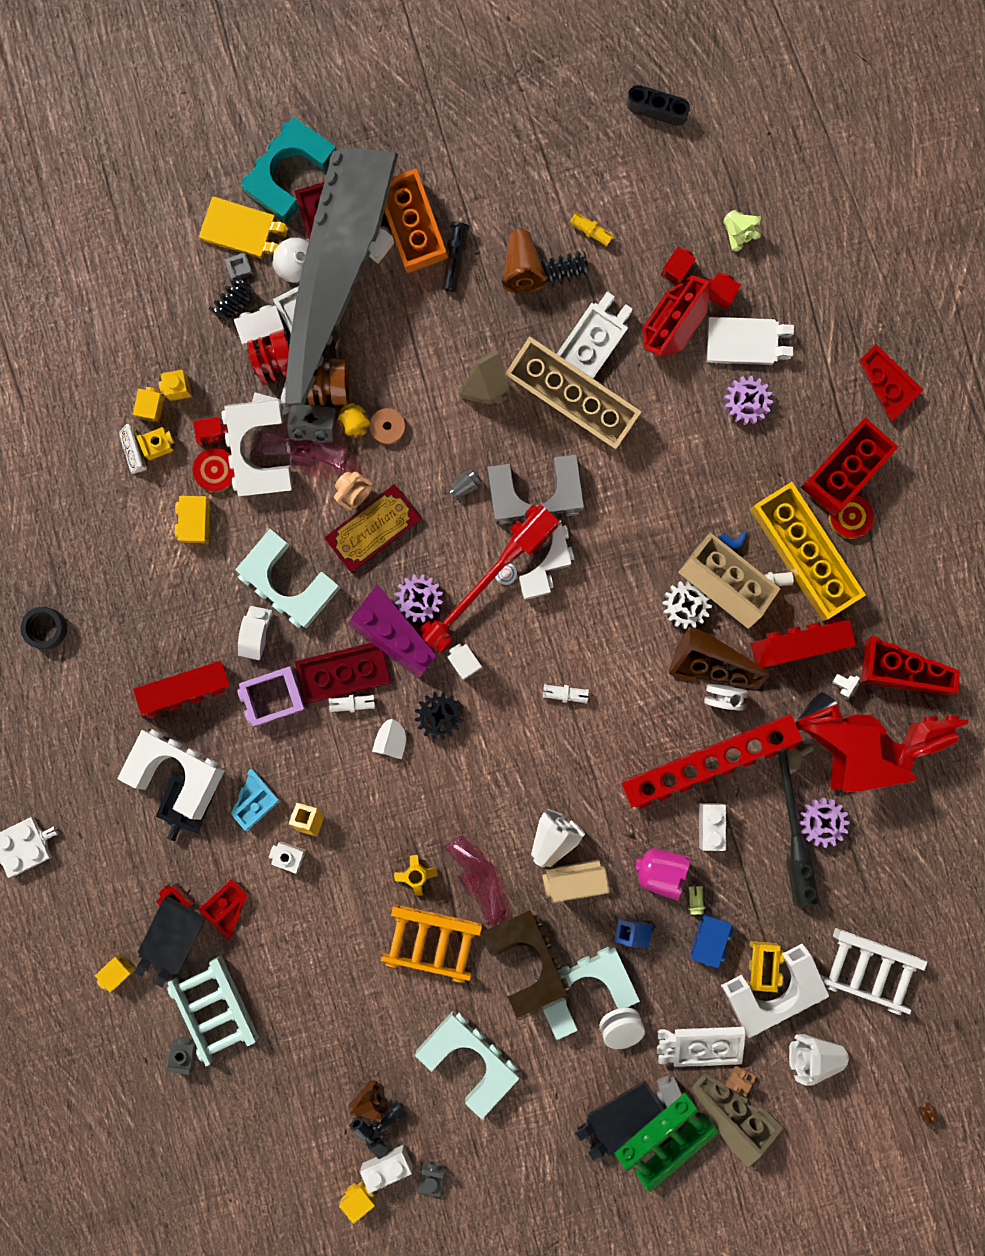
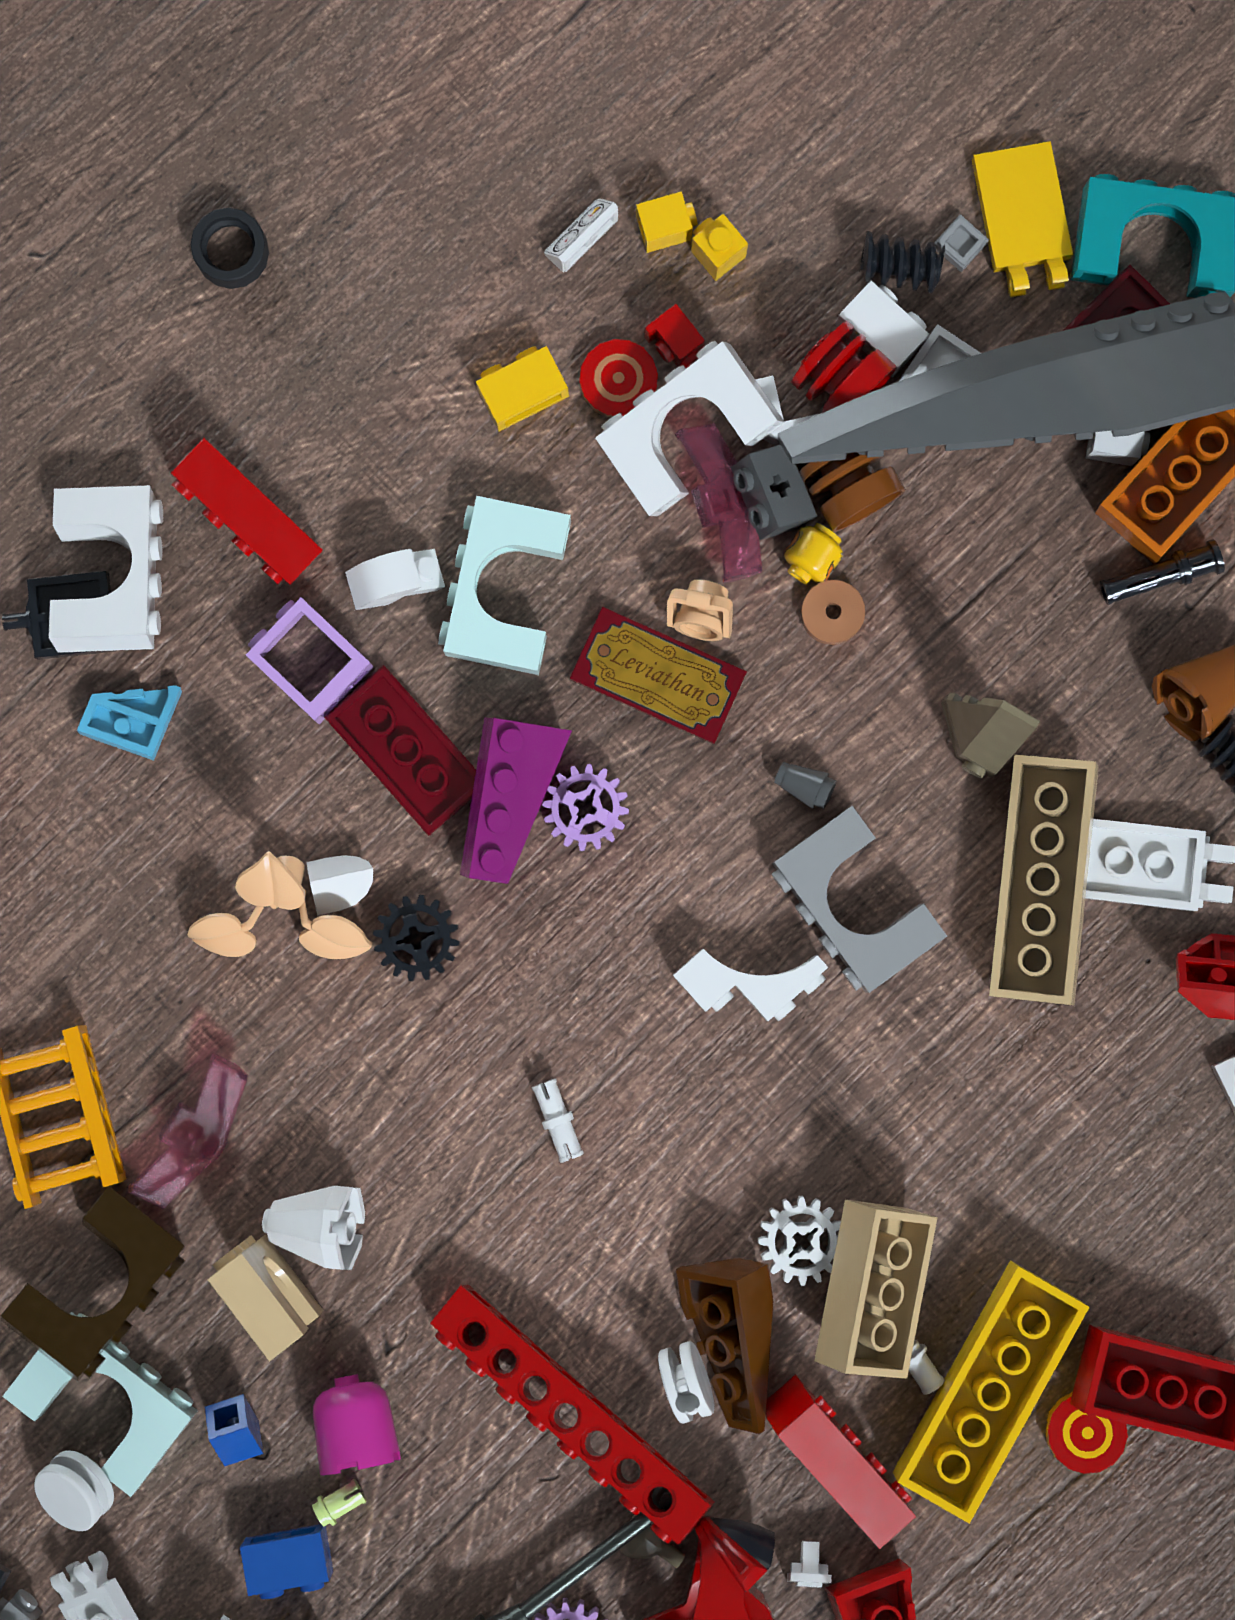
camera: 60 degrees right, 0 degrees up
(163, 447) = (611, 280): yellow brick -> none
(289, 259) = (1016, 316): white cylinder -> none
(295, 856) = (81, 828): white brick -> none
(306, 819) = (144, 817): yellow brick -> none
(351, 703) = (363, 790): white pin -> none
(374, 770) = (277, 884): none -> light nougat plant
(415, 875) = (147, 1035): yellow rock -> none
(464, 661) = (522, 932): white brick -> none
(507, 575) = (698, 924): white tile -> none
(526, 538) = (769, 926): red bar -> none
(712, 826) = (468, 1468): white brick -> none
(732, 543) = (940, 1264): blue animal -> none
(752, 407) = (1177, 1179): lavender gear -> none

